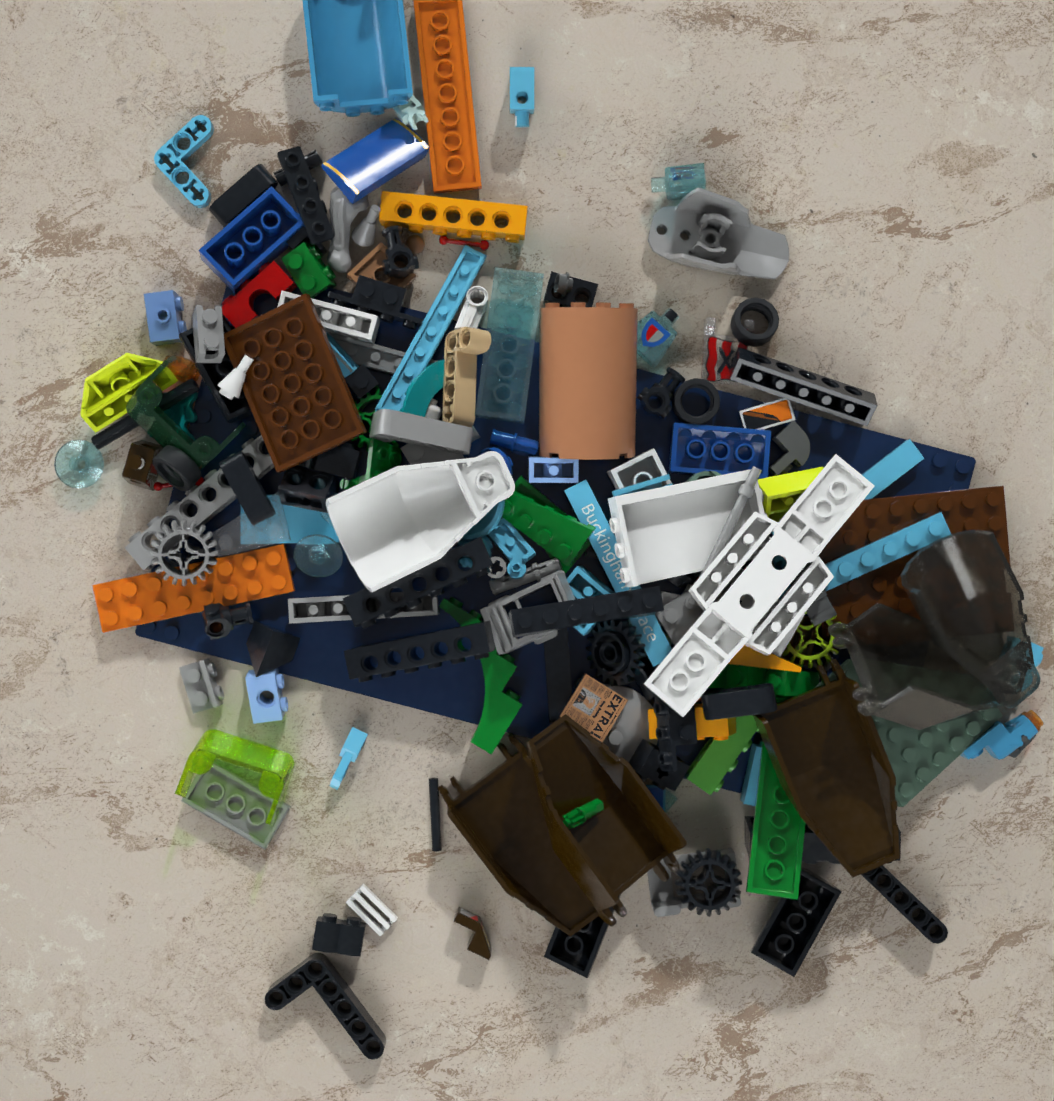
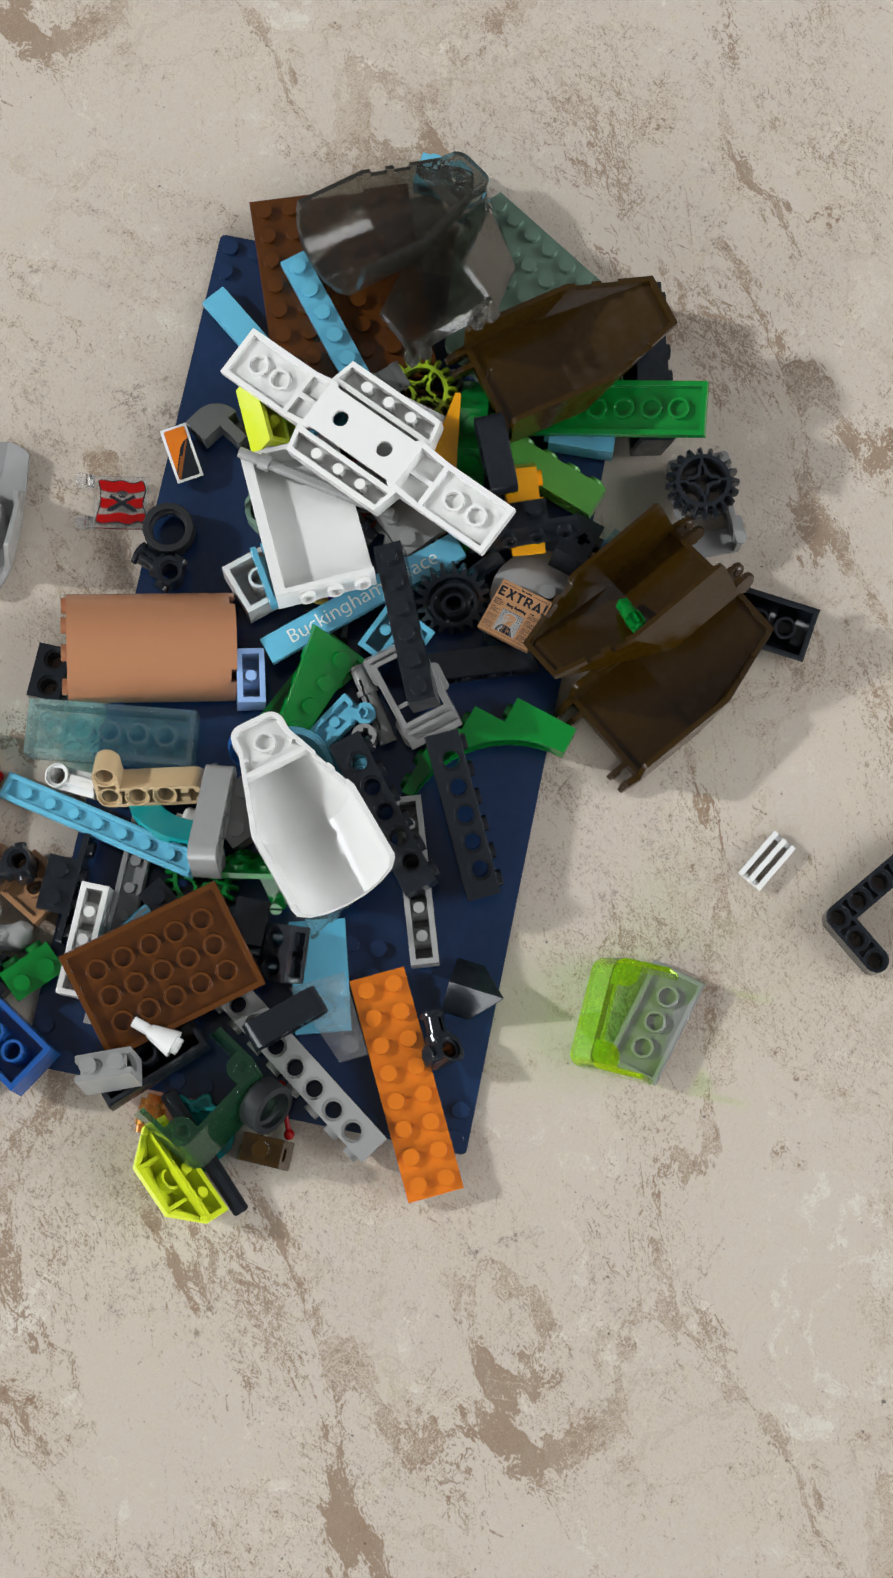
camera: 90 degrees left, 10 degrees down
(67, 463) = (251, 1233): clear light blue dish -> none
(164, 317) = (90, 1136): medium blue brick -> none
(172, 552) = (375, 1087): light grey gear -> none
(202, 685) = (520, 1071): light grey bracket -> none
(261, 707) = (542, 989): light blue brick -> none
(270, 280) = (45, 1010): red arch -> none
(317, 563) = (370, 939): clear light blue dish -> none
(339, 935) = (798, 894): black brick -> none
(349, 754) = (586, 892): medium azure piece -> none
(435, 814) = (652, 795): black piece -> none
(478, 941) = (788, 737): dark brown slope -> none
(514, 442) = (221, 726): blue axle -> none
(563, 284) = (40, 678): dark grey plate -> none
(655, 335) = (97, 576): clear light blue torso -> none
(718, 449) = (220, 504): blue slope -> none
(761, 306) = (65, 460): black tyre -> none
(796, 923) = (744, 392): black brick -> none
(803, 386) = (148, 417): black brick -> none
(907, 904) = (714, 279): black beam -> none
(1006, 740) = (524, 186): dark azure plate -> none

